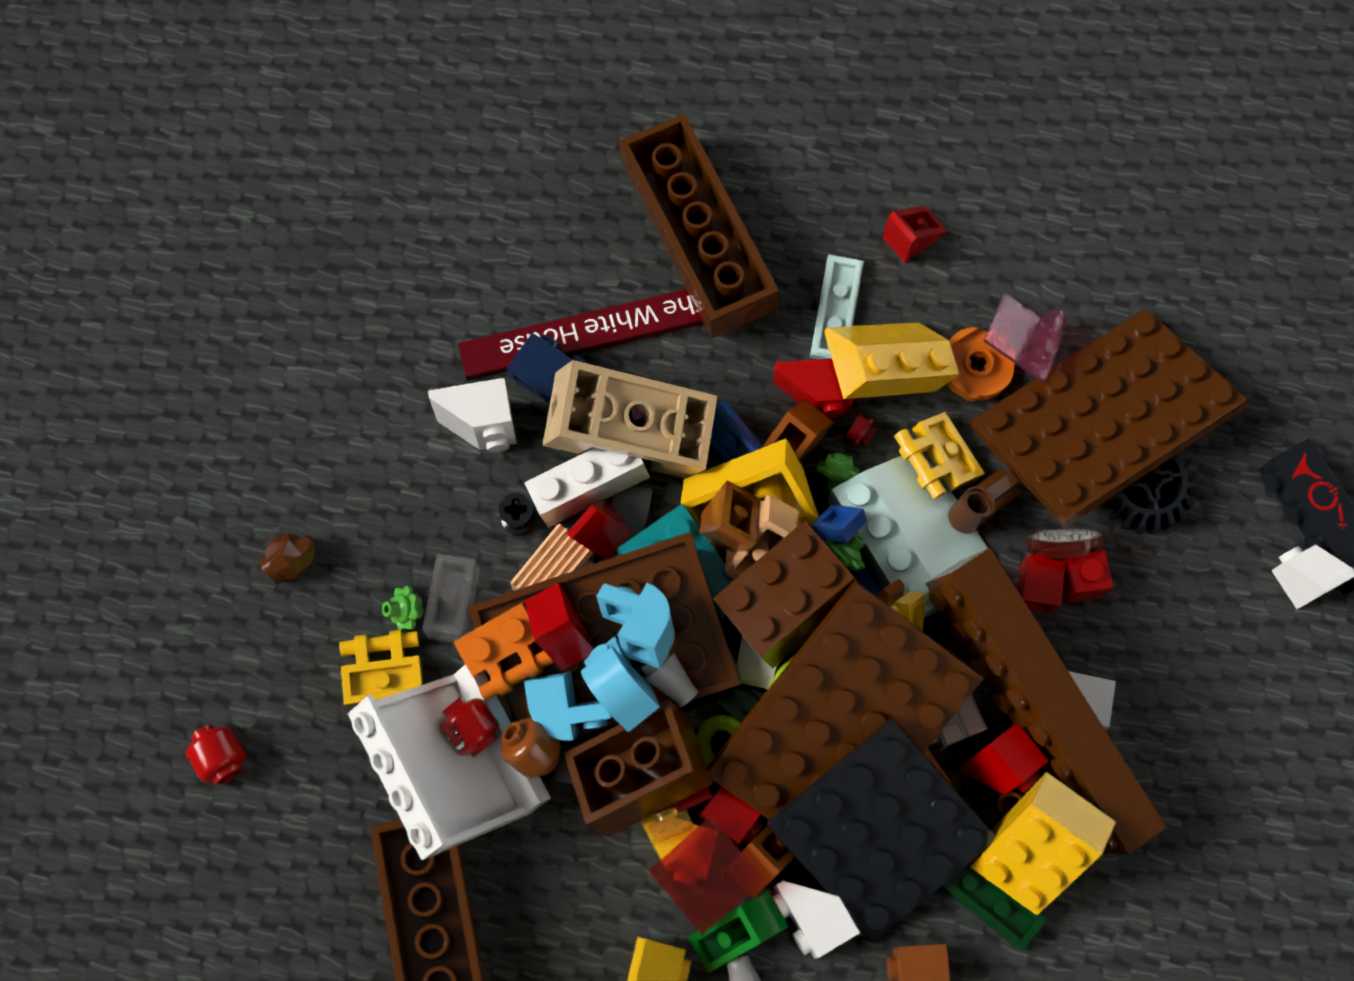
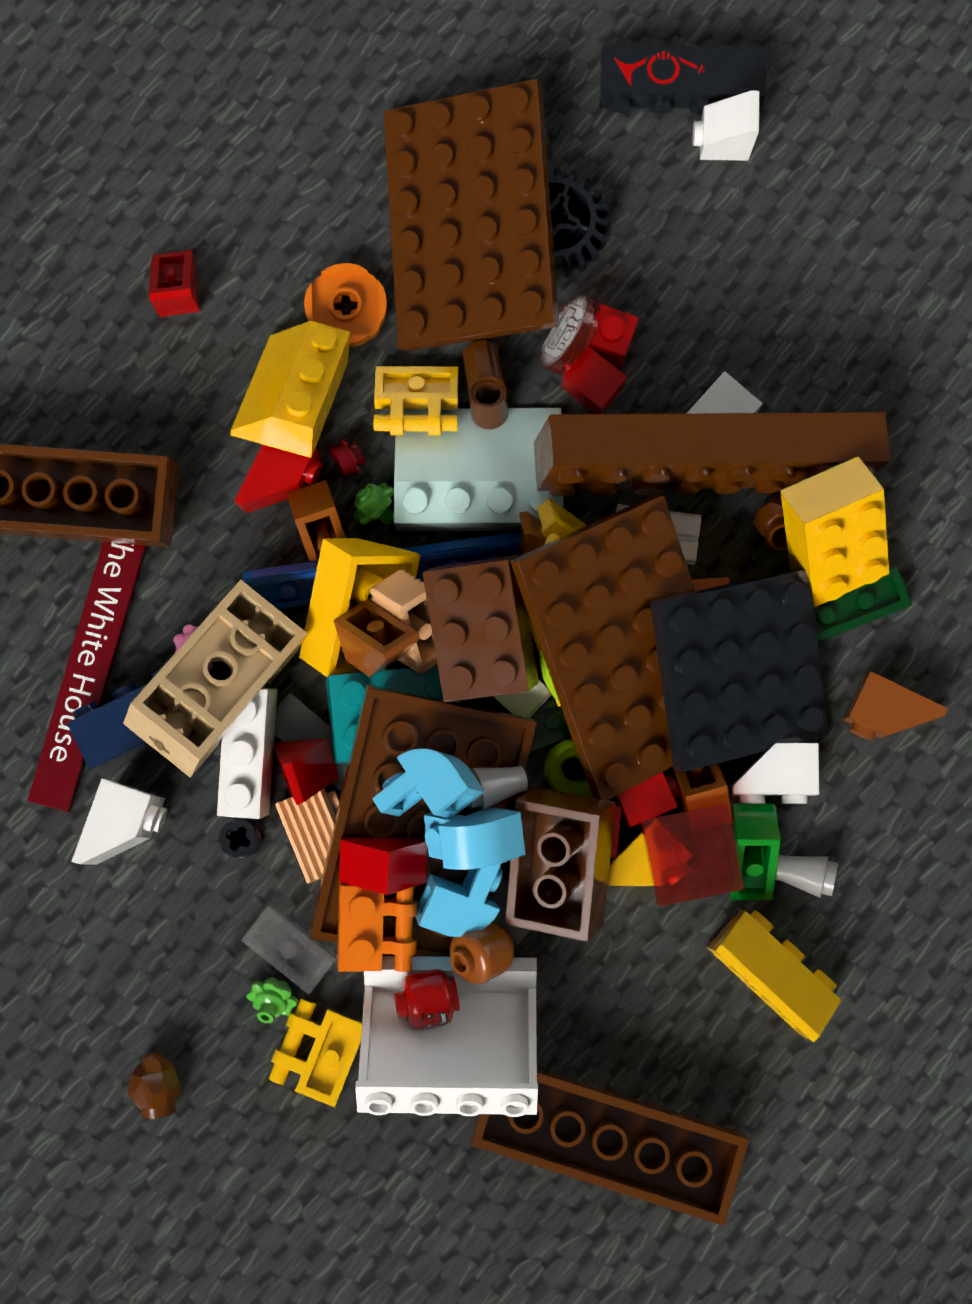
camera: 55 degrees left, 10 degrees up
(215, 754) = (312, 1256): red head -> none
(669, 824) = (627, 862): clear yellow plate -> none
(836, 300) = (202, 402): light aqua tile -> none
(839, 523) = (433, 537): blue tile -> none
(849, 552) = (465, 545): bright green plant -> none
(1007, 762) = (743, 518): red slope -> none
(1025, 336) = (346, 243): clear pink hinge -> none

